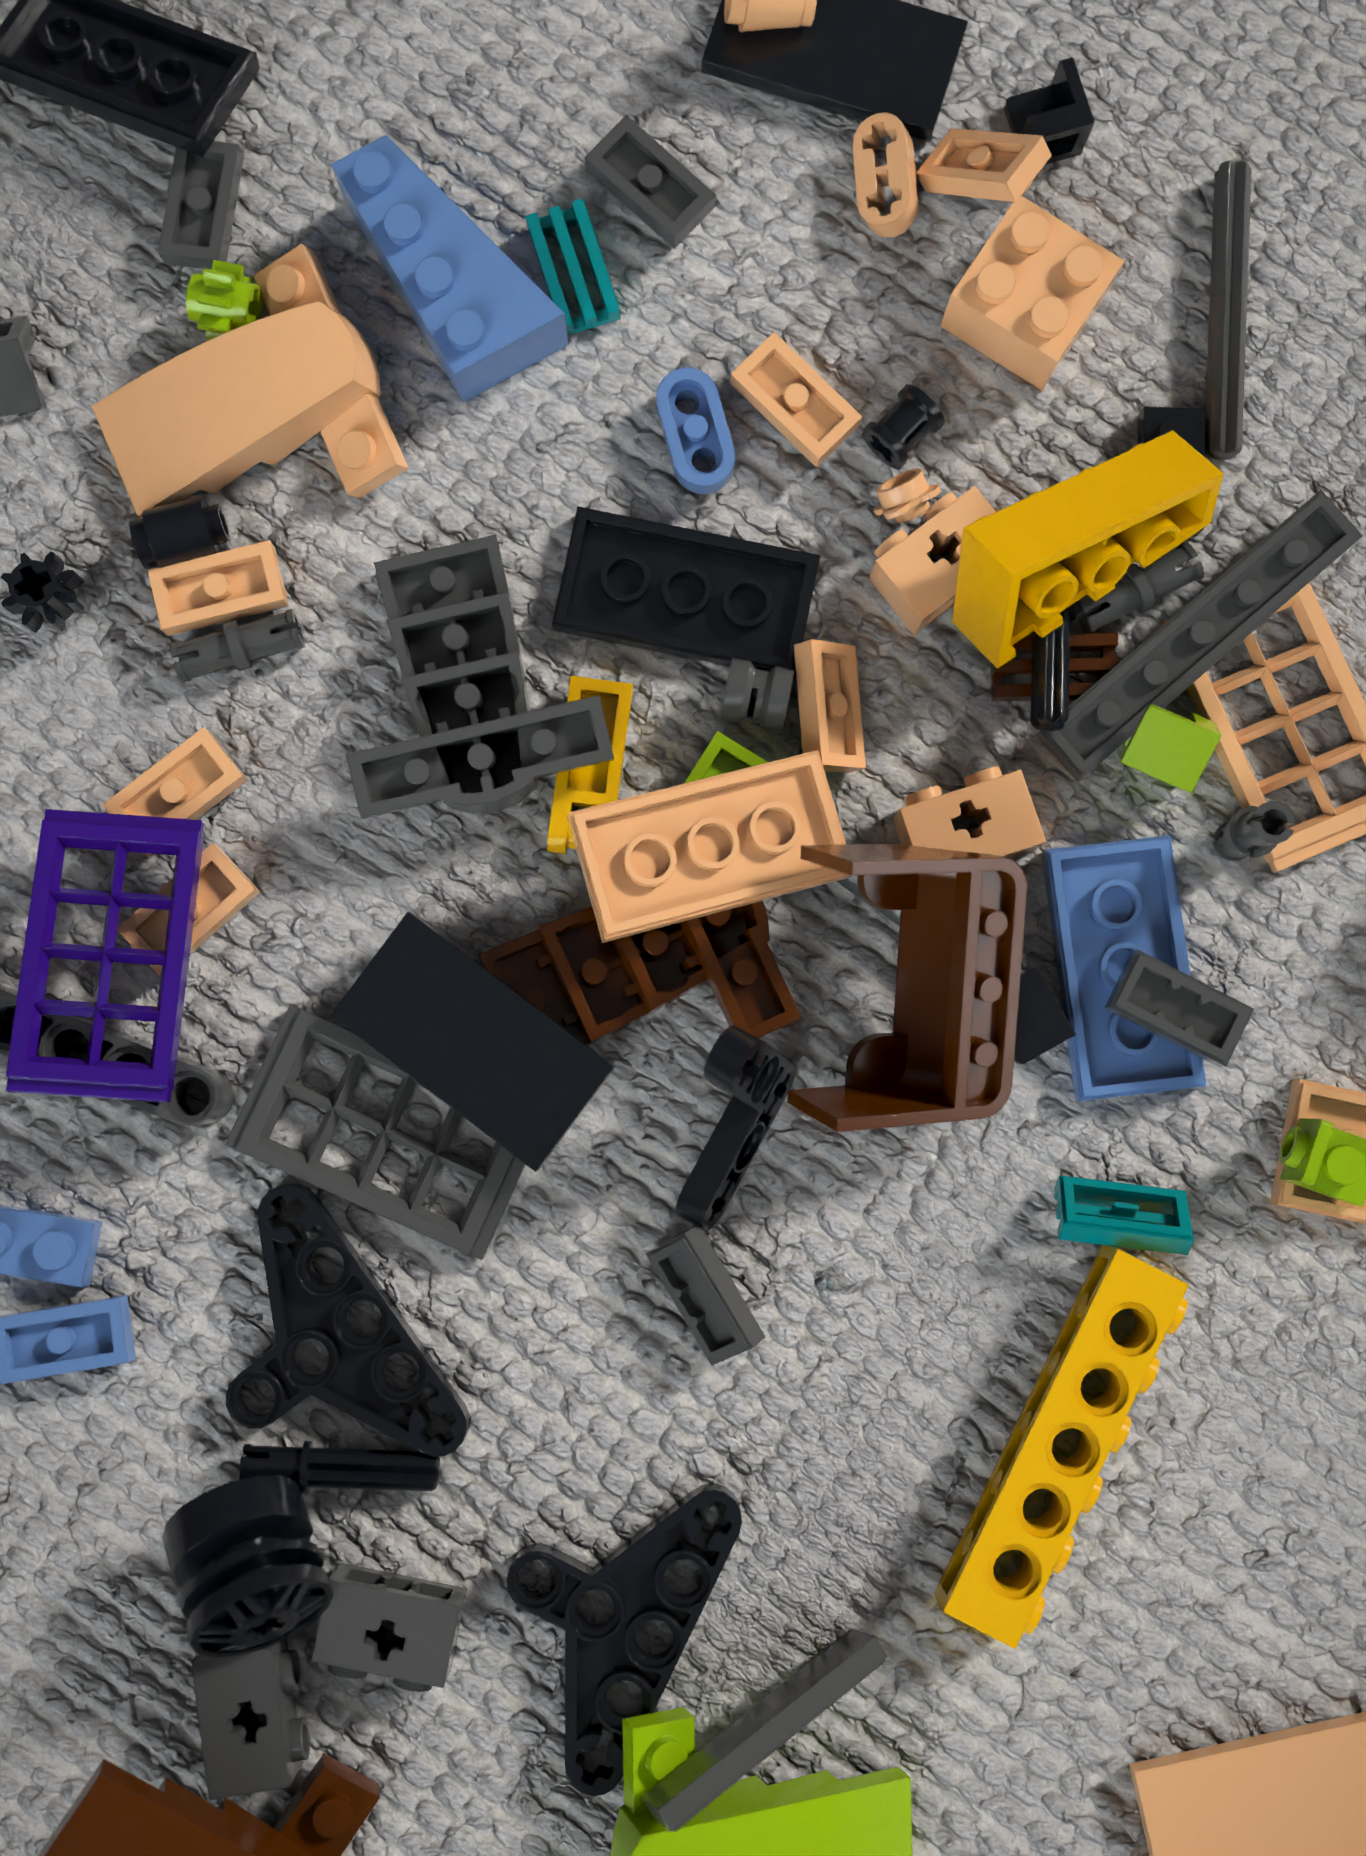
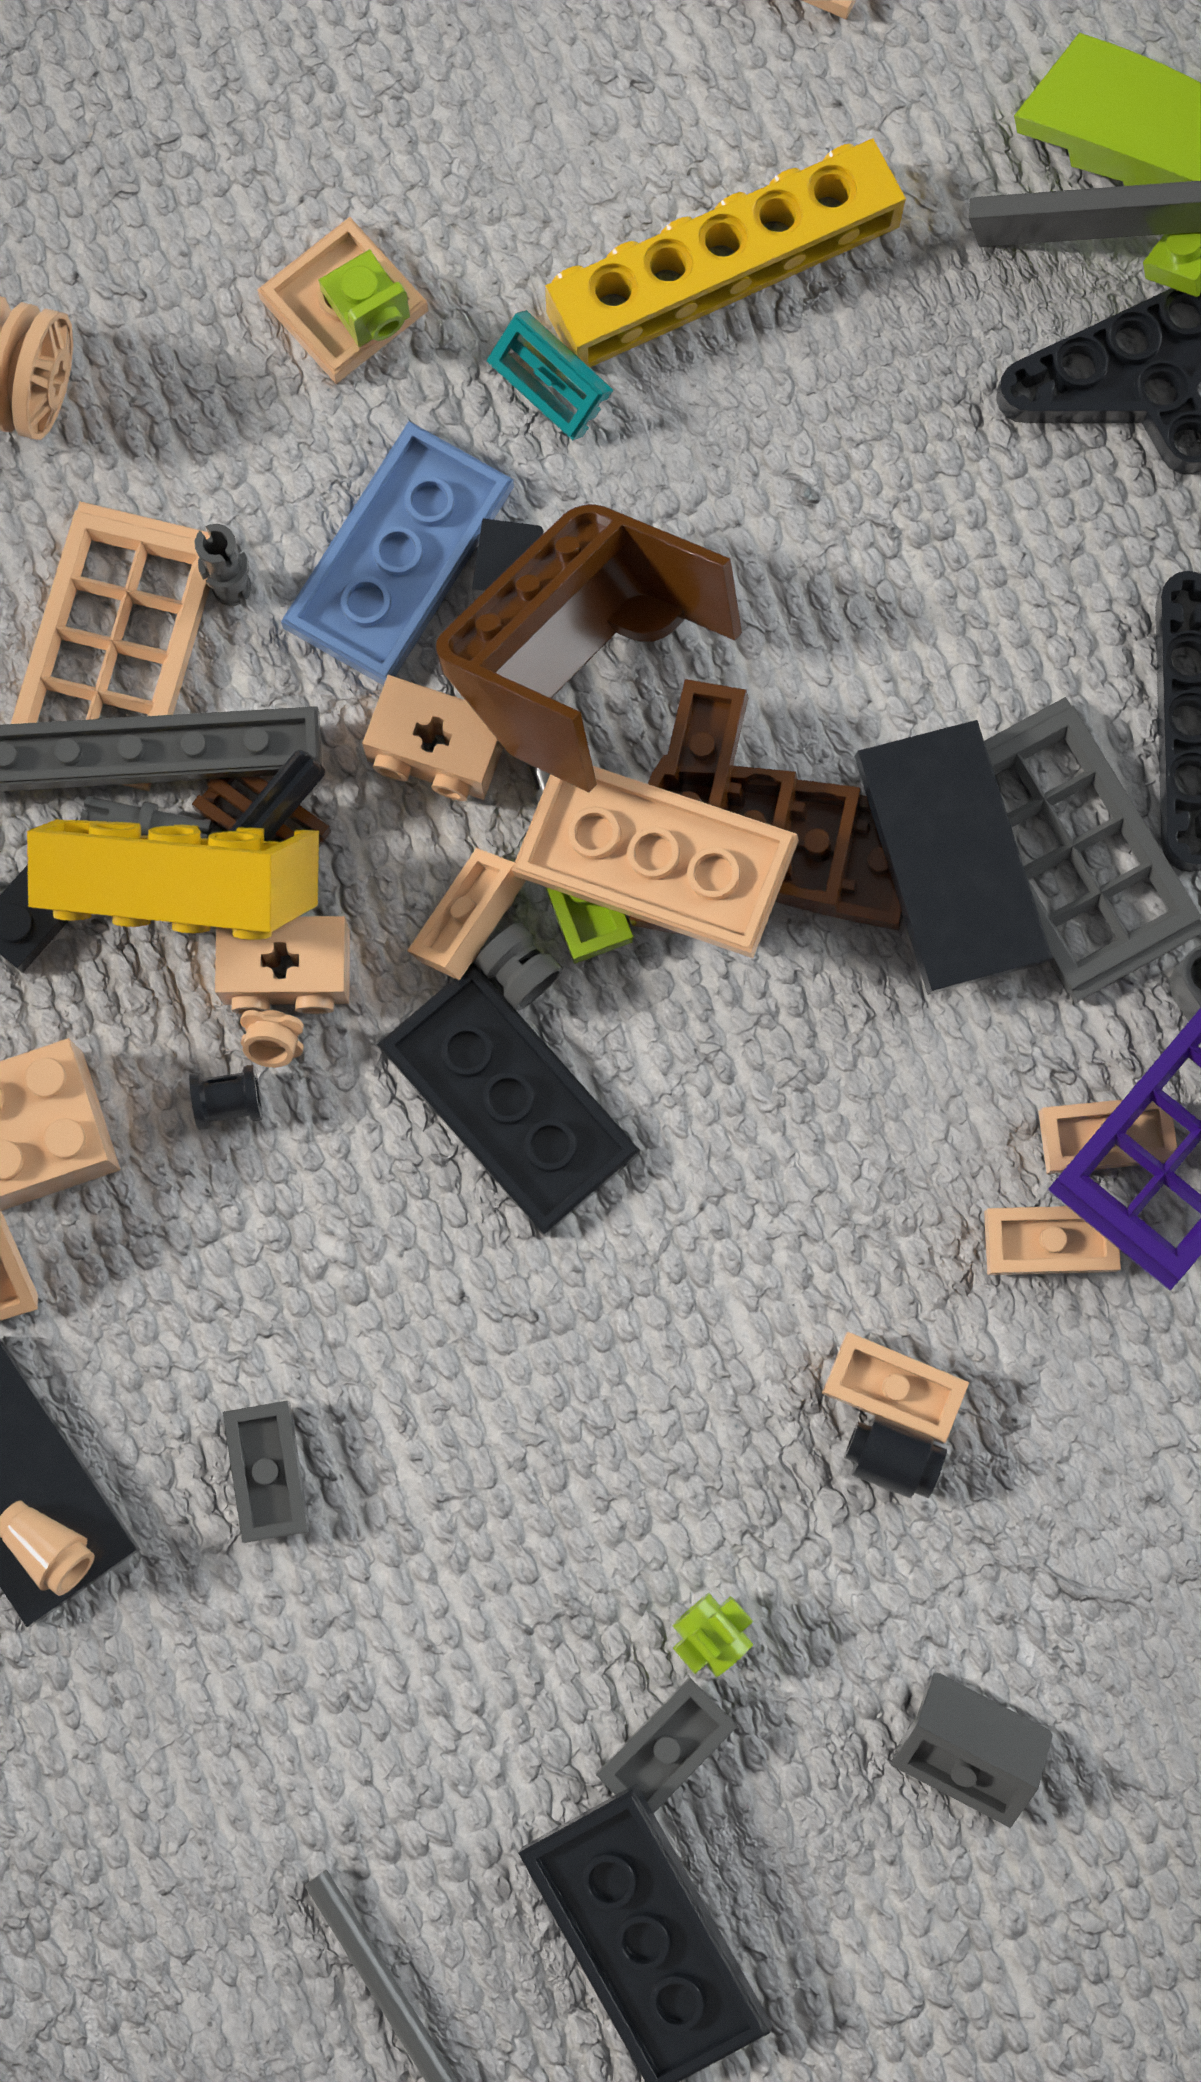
camera: 140 degrees left, 5 degrees down
(27, 596) = (1034, 1504): black gear -> none
(237, 645) = (913, 1328): dark grey pin -> none
(256, 398) = (744, 1529): light nougat slope -> none
(457, 284) = (503, 1502): medium blue wedge -> none
(467, 693) = (752, 1139): dark grey slope -> none
(557, 222) = (363, 1443): teal tile -> none
(598, 782) = (692, 1016): yellow plate -> none
(695, 434) = (396, 1224): medium blue plate -> none
(705, 1295) = (911, 545): dark grey plate -> none
(758, 1085) = (782, 649): black beam -> none
(795, 399) = (294, 1188): light nougat plate -> none
(873, 177) = (78, 1333): light nougat beam -> none
(1171, 746) = (230, 673): lime panel -> none
(1179, 1008) = (387, 484): dark grey plate -> none

